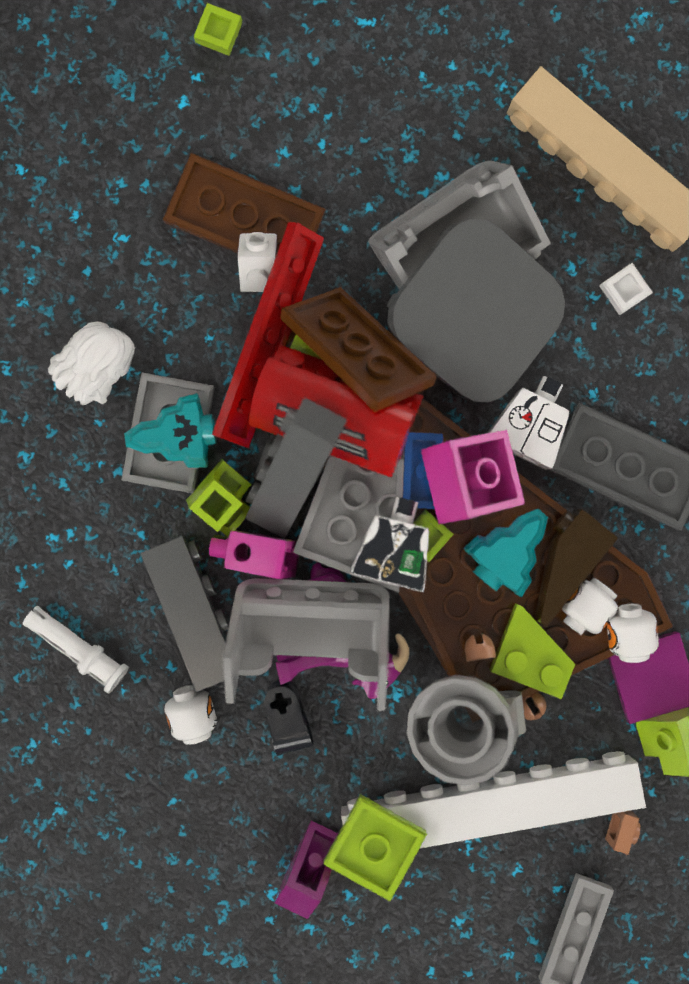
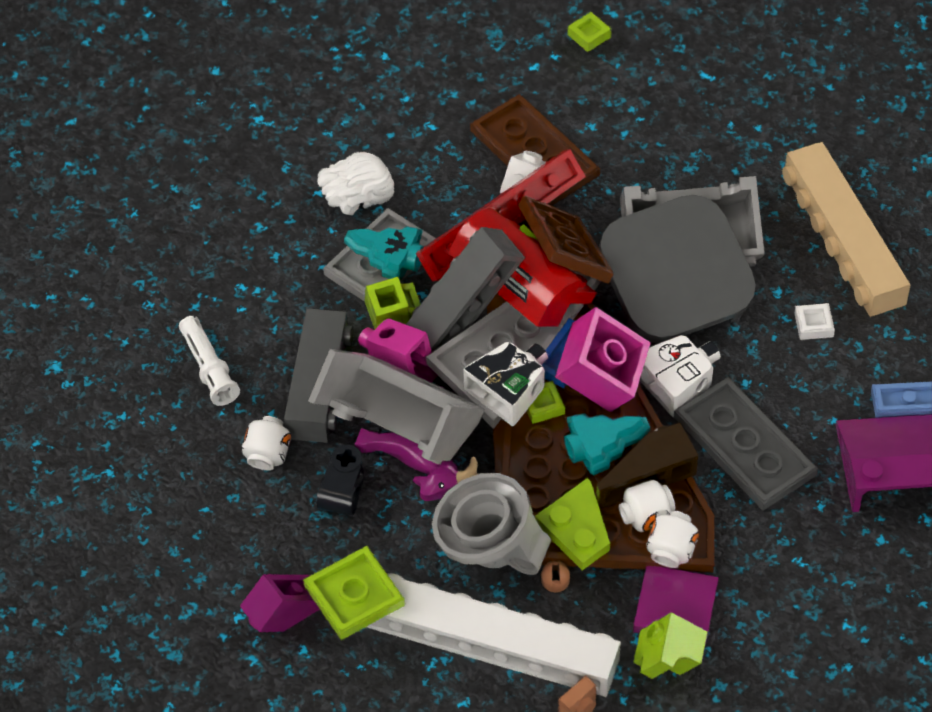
camera: 30 degrees right, 35 degrees down
(480, 651) = (539, 491): nougat hinge -> none

